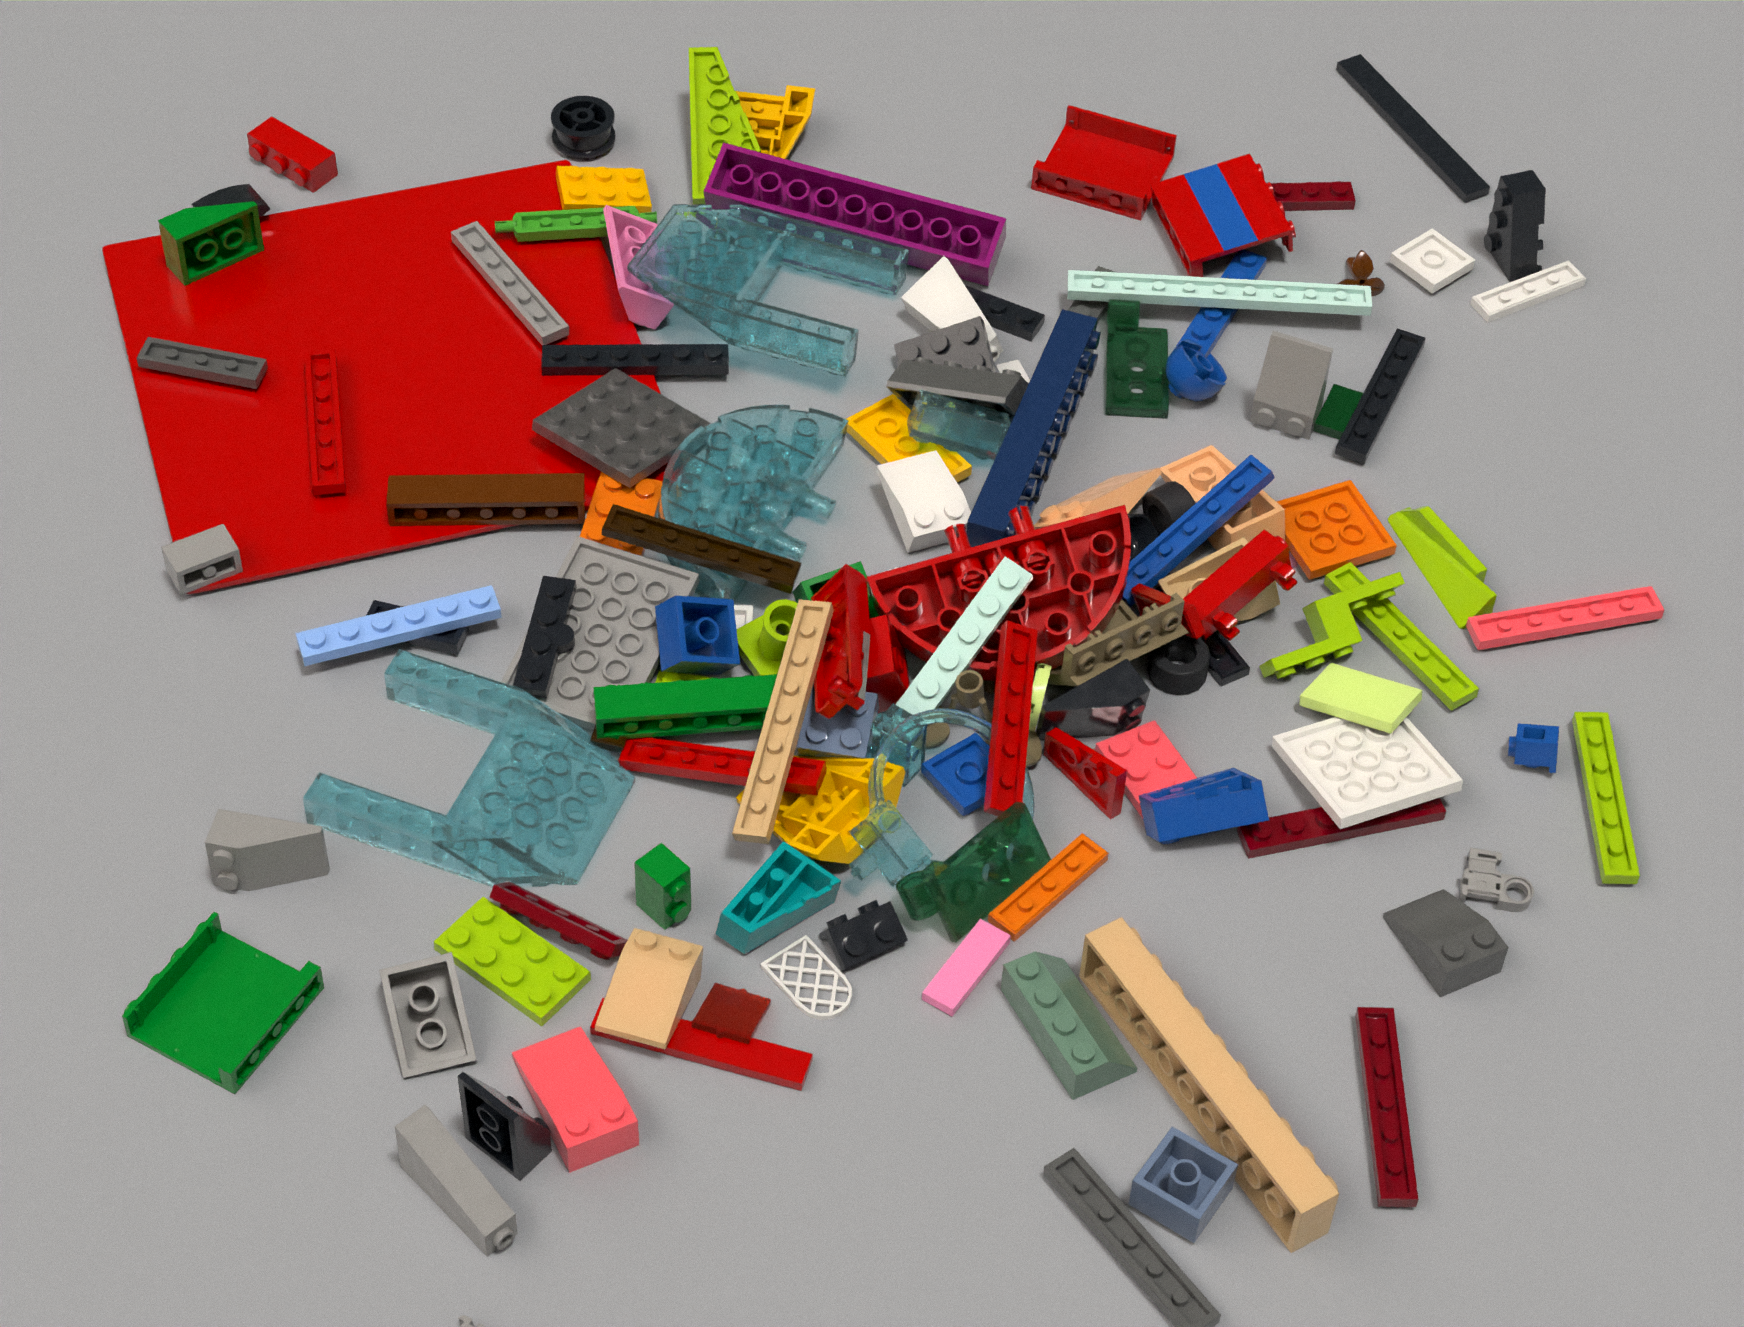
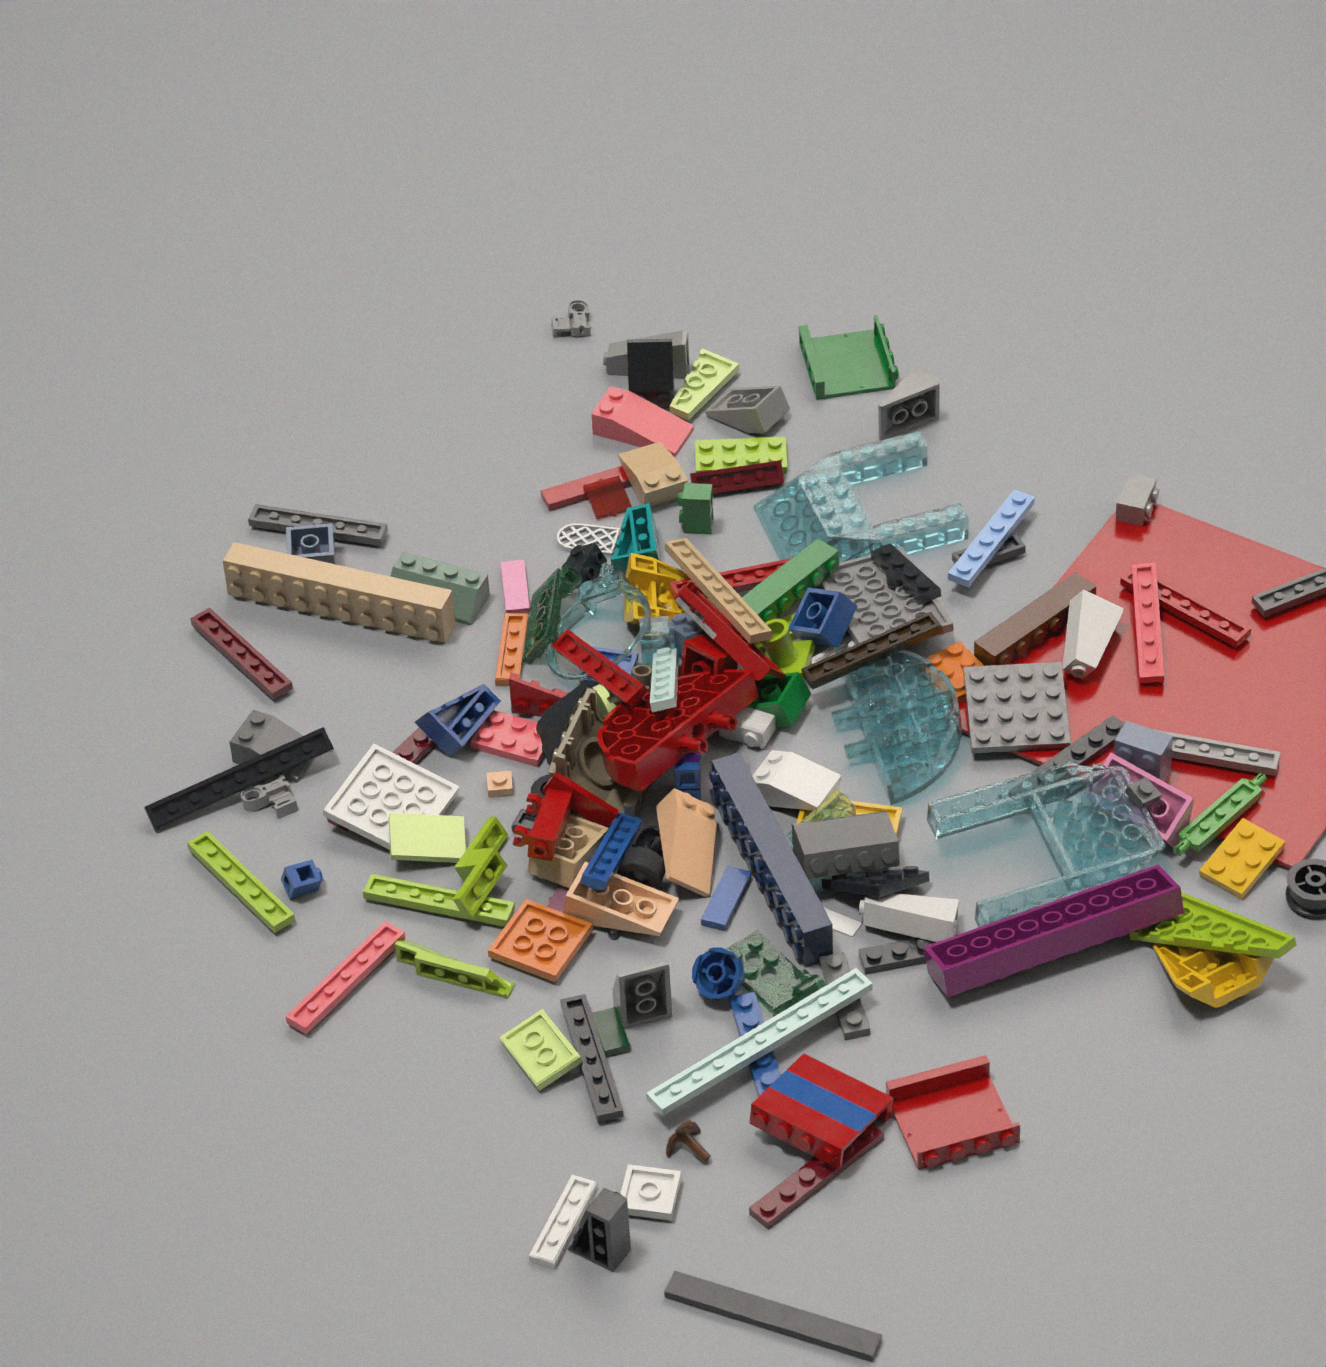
camera: 145 degrees right, 5 degrees down
(388, 416) = (1148, 623): none -> coral plate
(393, 1102) = (704, 381): none -> yellowish green wing
(462, 439) = (1088, 632): none -> white slope
(582, 291) = (1145, 749): none -> sand blue brick
(642, 235) = (1143, 793): none -> dark grey plate
(1101, 460) = (726, 898): none -> tile
(1216, 728) = (499, 784): none -> light nougat plate
(1425, 427) = (540, 1049): none -> yellowish green tile
(1522, 911) = (238, 778): none -> black tile

